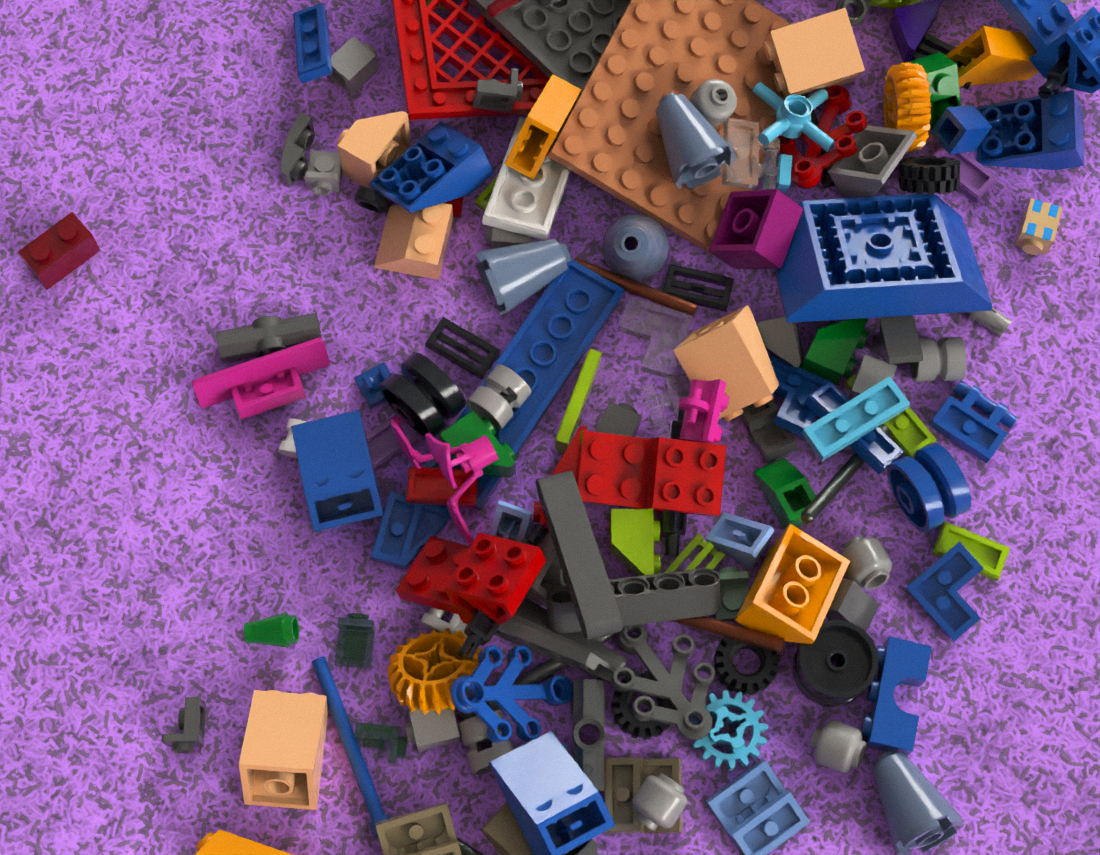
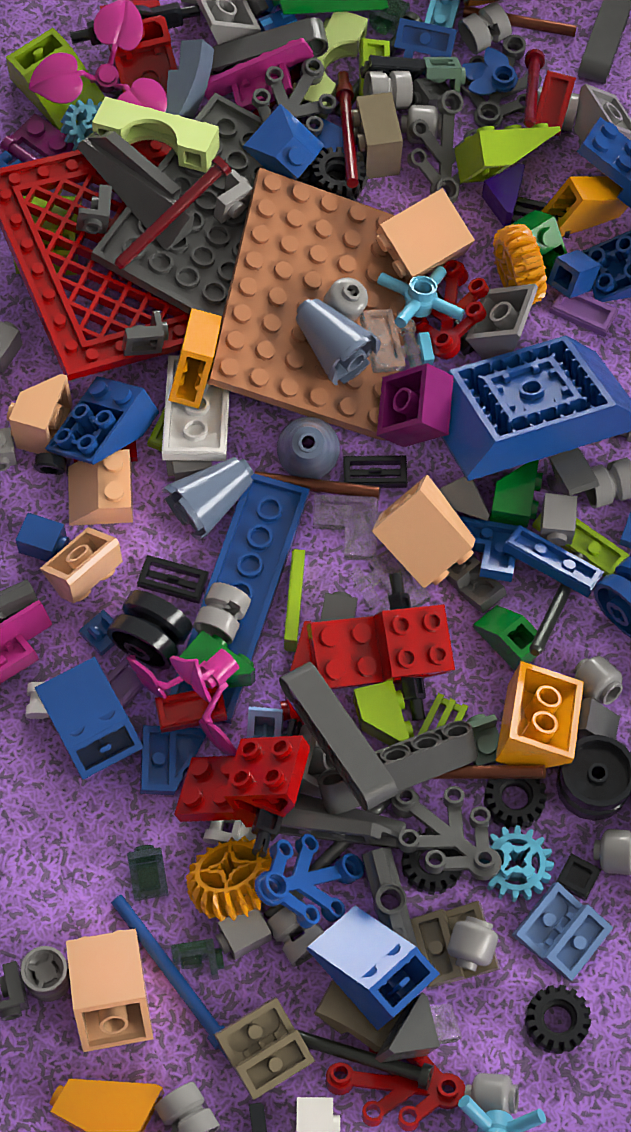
camera: 15 degrees left, 5 degrees down
(225, 717) = (45, 973): none -> light grey wheel
(275, 630) = (68, 882): green cone -> none
(342, 274) = (41, 537): none -> blue brick
(374, 312) = (83, 564): none -> light nougat slope
(703, 410) = (414, 578): dark pink hips -> none
(740, 538) = (478, 687): light blue slope -> none
(789, 760) = (578, 876): none -> black tile
(855, 418) = (554, 551): medium azure plate -> none
(929, 175) = (557, 320): black tyre -> none

